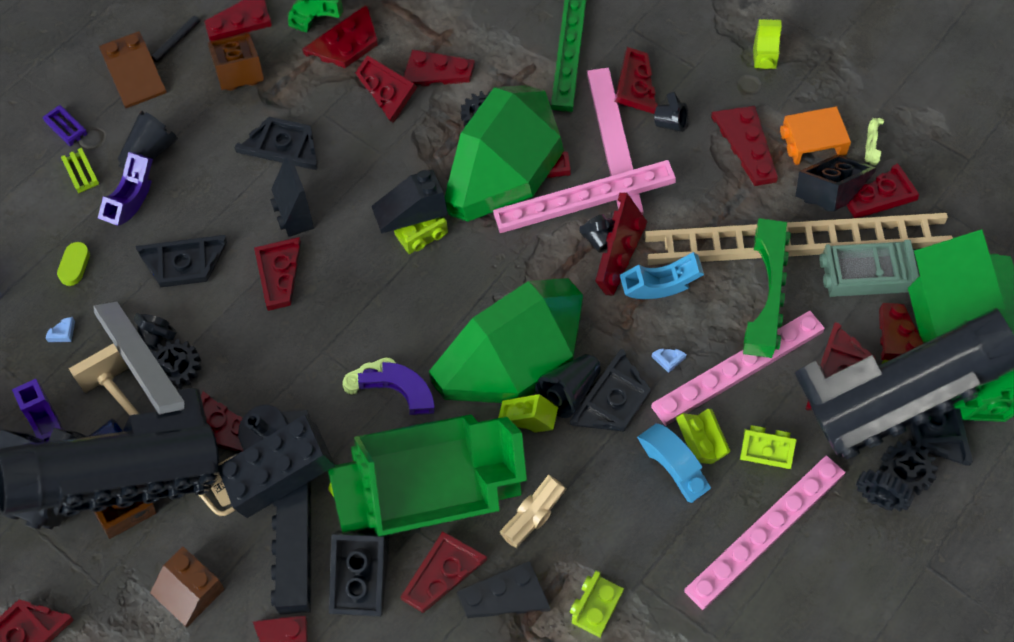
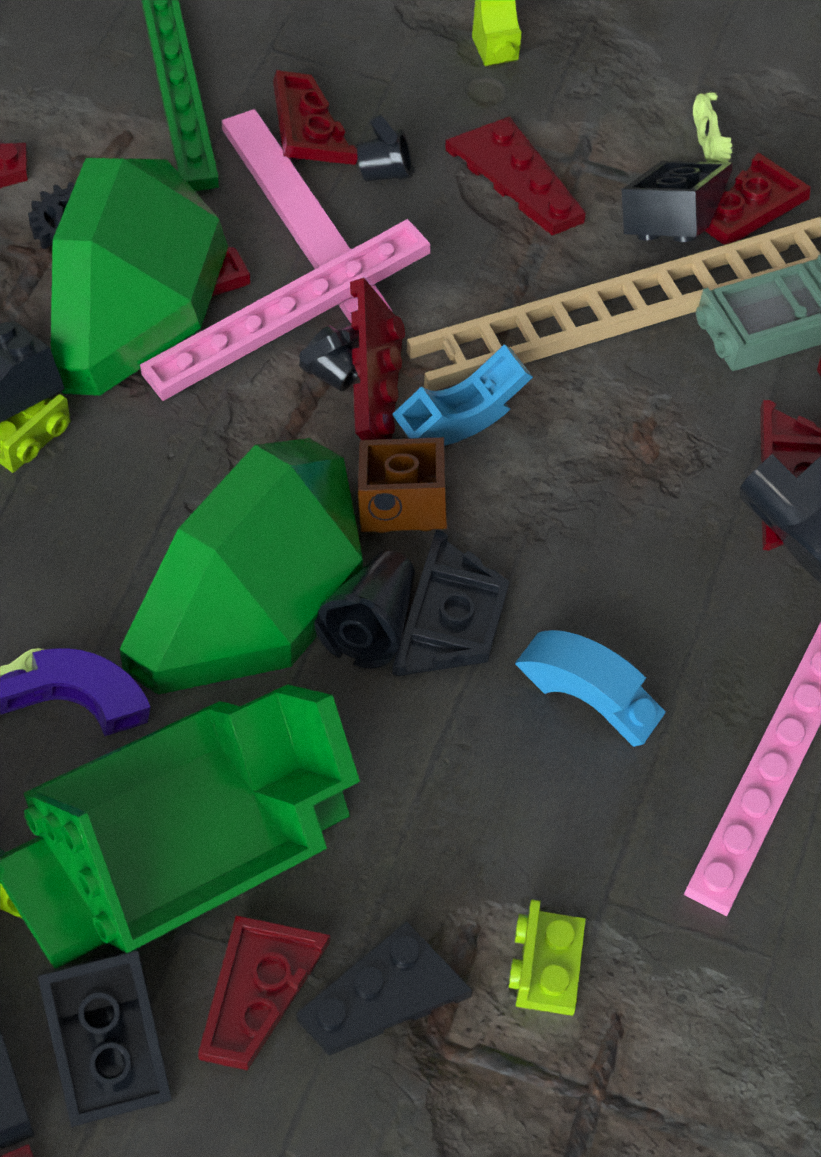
camera: 25 degrees left, 5 degrees down
(530, 413) = (324, 666): lime arch -> none
(533, 511) = (384, 835): tan piece -> none
(610, 318) = (402, 484): none -> reddish brown brick
(668, 358) = (517, 527): light blue tile -> none
(703, 436) = (625, 629): lime bracket -> none
(733, 371) = (631, 516): bright pink plate -> none
(768, 448) = (733, 622): lime bracket -> none
(770, 242) = (619, 305): green arch -> none
(815, 132) = (617, 133): orange panel -> none

